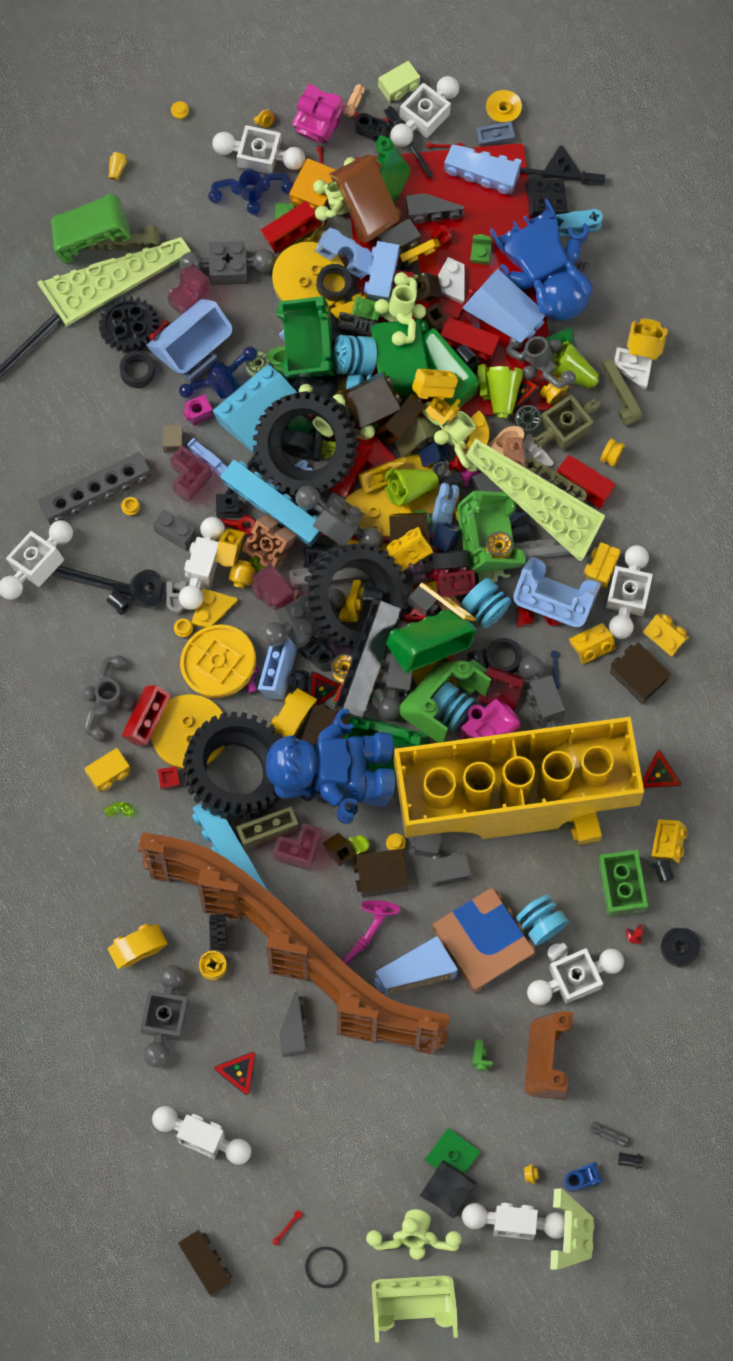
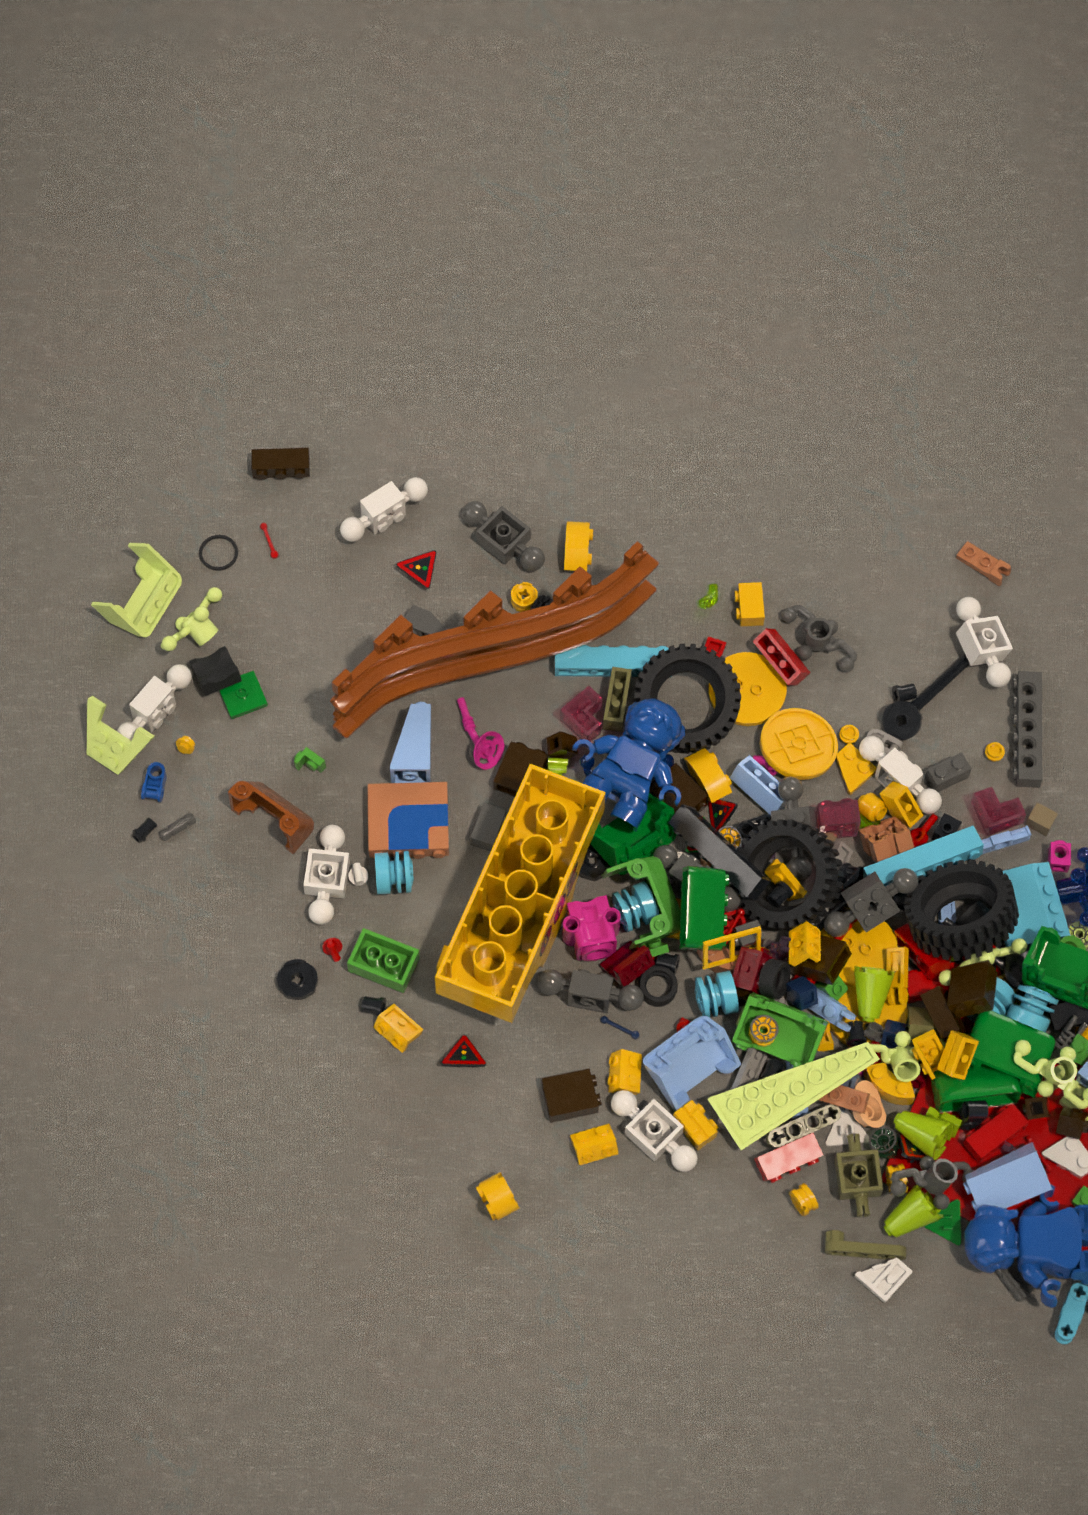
camera: 120 degrees right, 5 degrees down
(300, 680) = (739, 796): black gear -> none
(647, 338) = (904, 1300): yellow brick -> none

